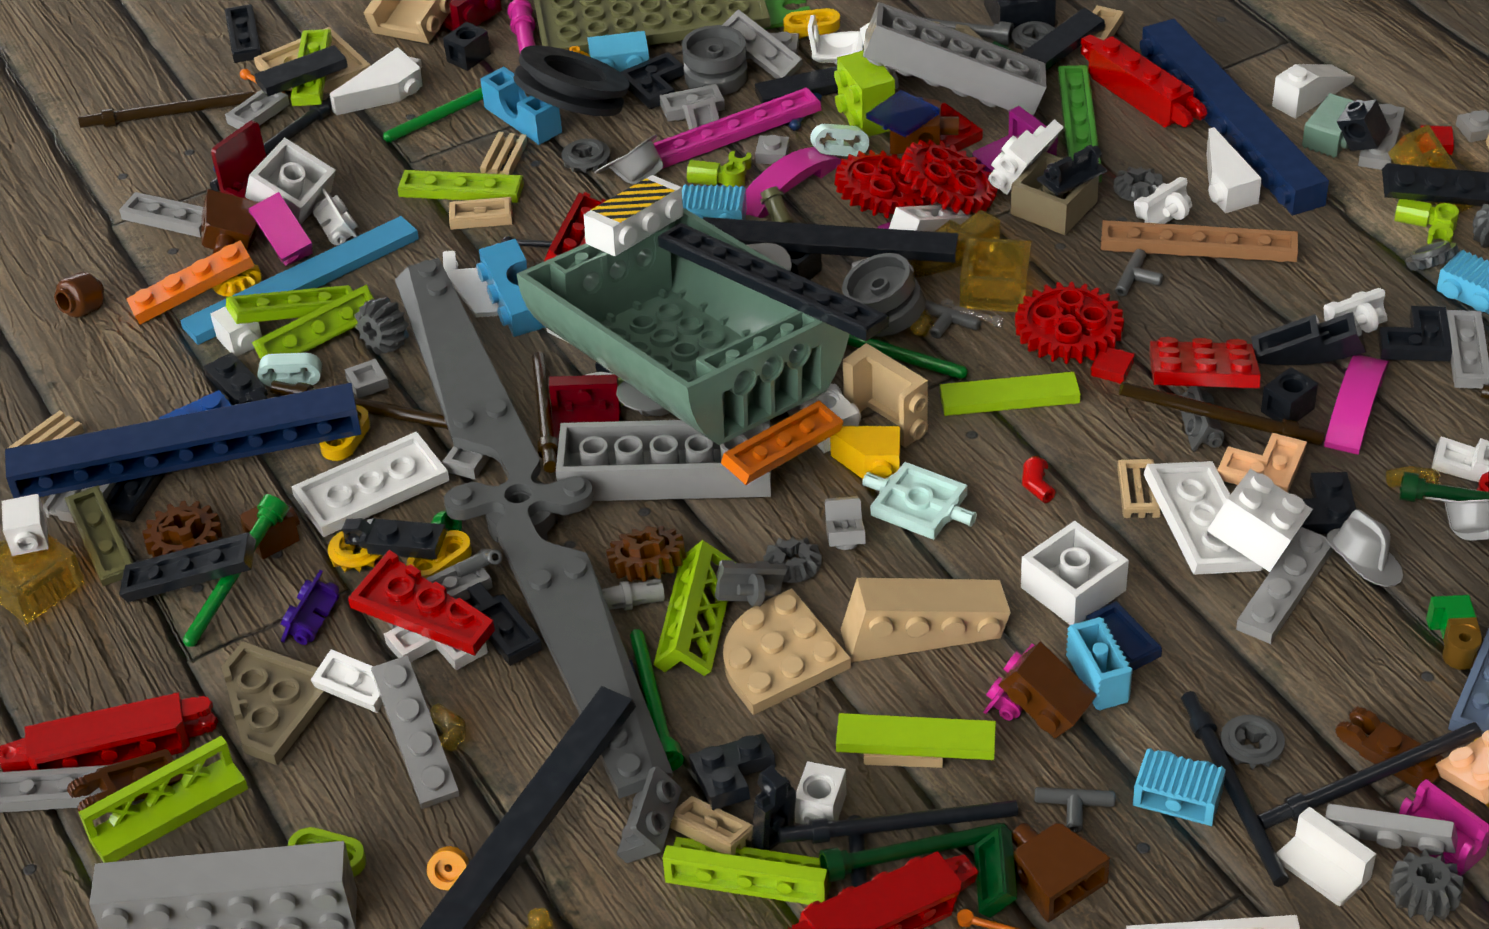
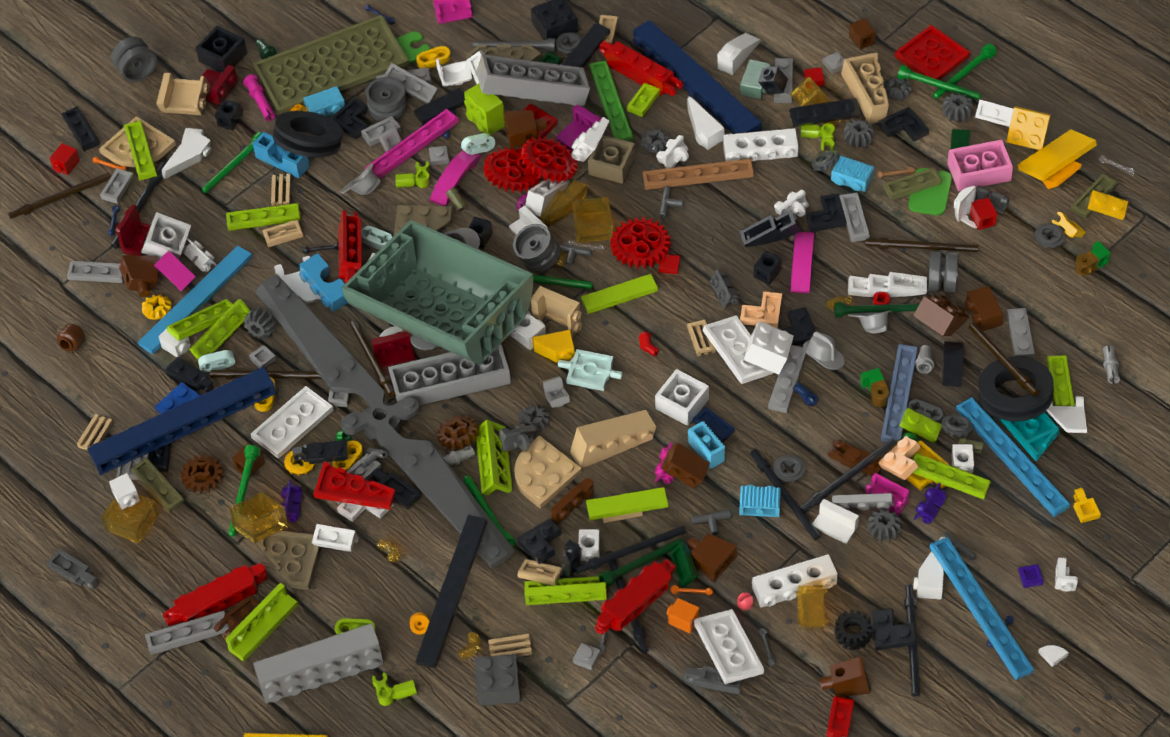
camera: 15 degrees left, 10 degrees up
(188, 567) = (218, 494): black plate -> none
(190, 282) = (133, 316): orange plate -> none
(197, 63) = (64, 159): none -> red brick
(236, 618) = (258, 517): none -> clear yellow container
(301, 70) = (138, 156): black tile -> none
(414, 732) = (376, 557): light grey plate -> none
(577, 155) = (326, 176): dark grey gear -> none
(633, 215) = (393, 236): white brick -> none
(650, 817) = (509, 575): dark grey bracket -> none
(715, 201) = (422, 208): medium azure brick -> none
(774, 282) = (484, 264): black tile -> none
(781, 442) = (513, 355): orange plate -> none
(813, 710) = (572, 500): none -> reddish brown hinge
(843, 239) = (498, 217): black tile -> none
(903, 113) = (513, 124): clear blue piece -> none
(1070, 172) = (621, 148): black hinge -> none
(1134, 125) = (643, 99): none -> lime plate
(1204, 363) = (719, 256): red plate -> none
(1285, 427) = (768, 287): dark brown bar -> none
(1317, 620) = (809, 398): none -> dark blue arm
(1322, 216) = (761, 145): none -> white brick

